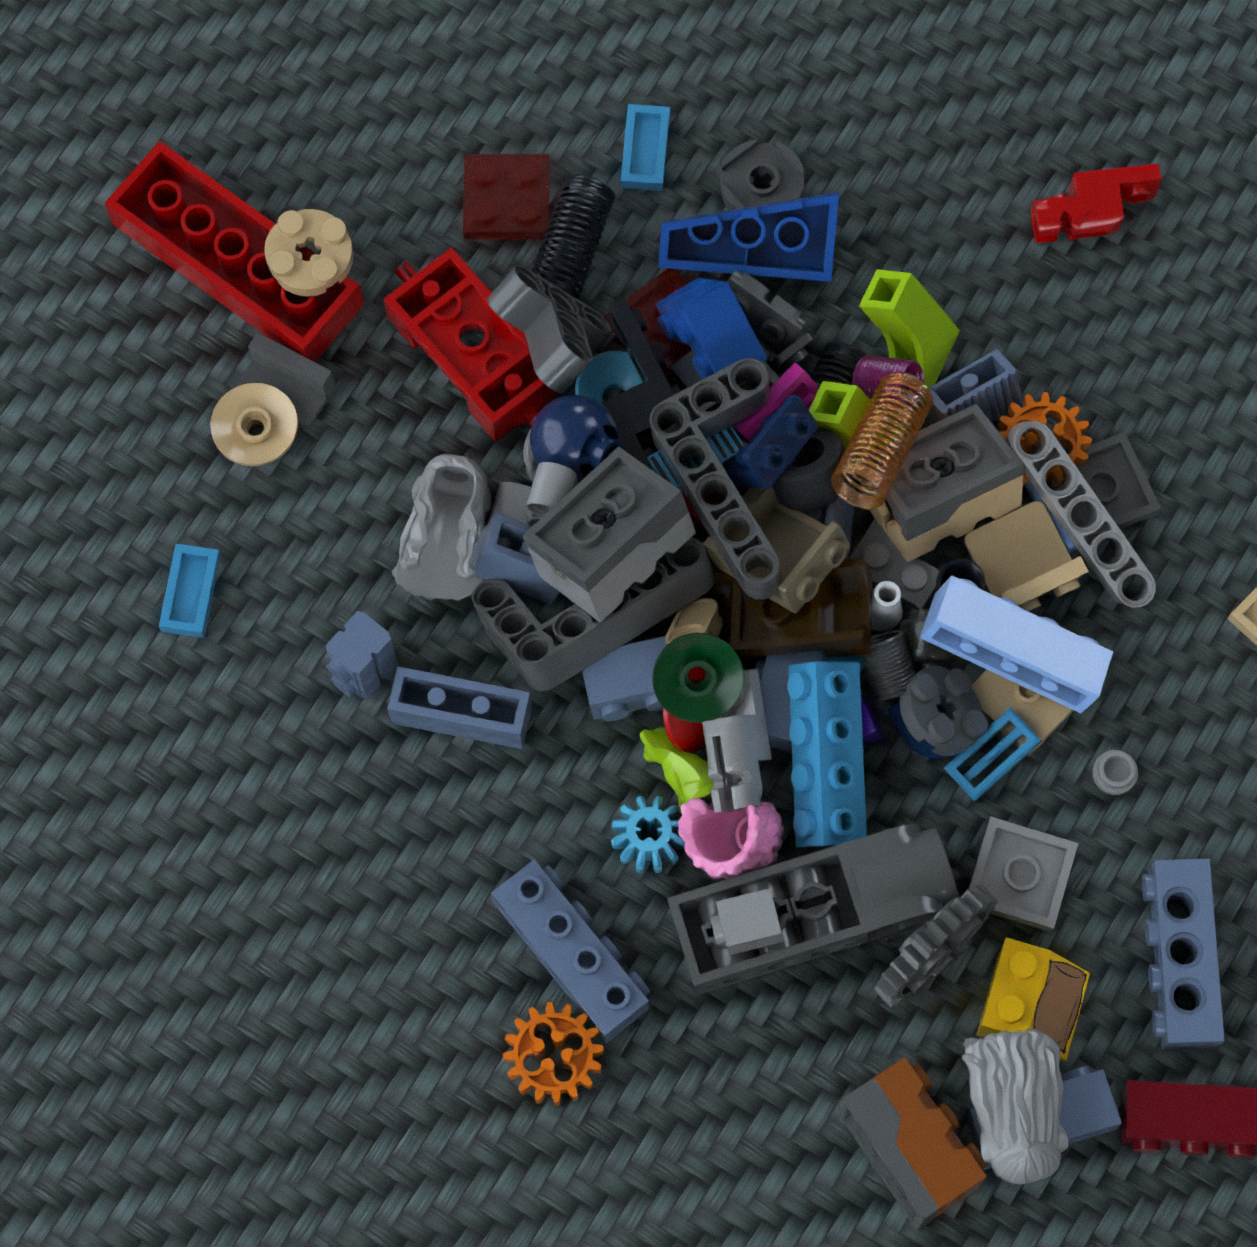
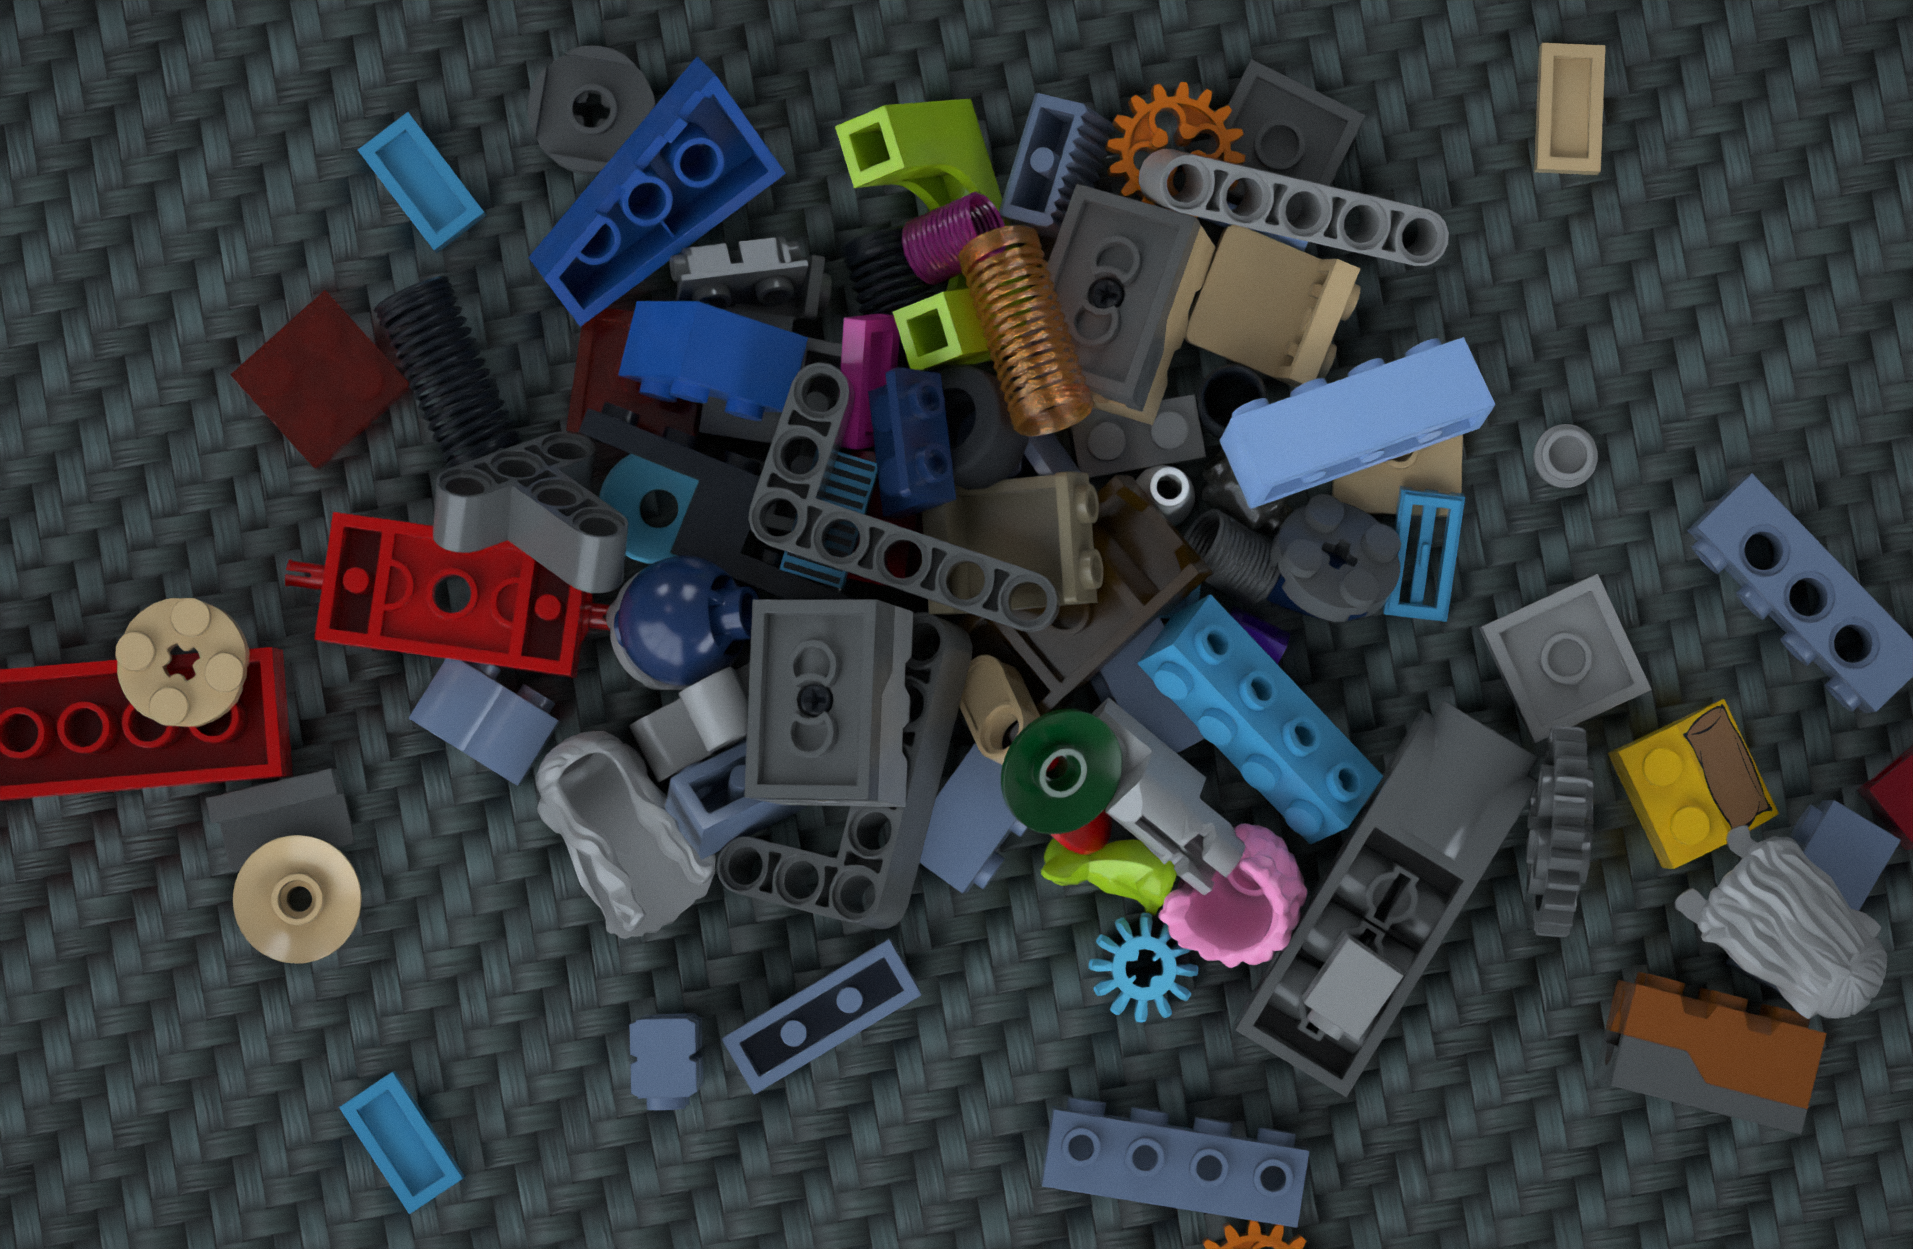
camera: 45 degrees left, 15 degrees up
(431, 417) = (486, 718): none -> sand blue brick

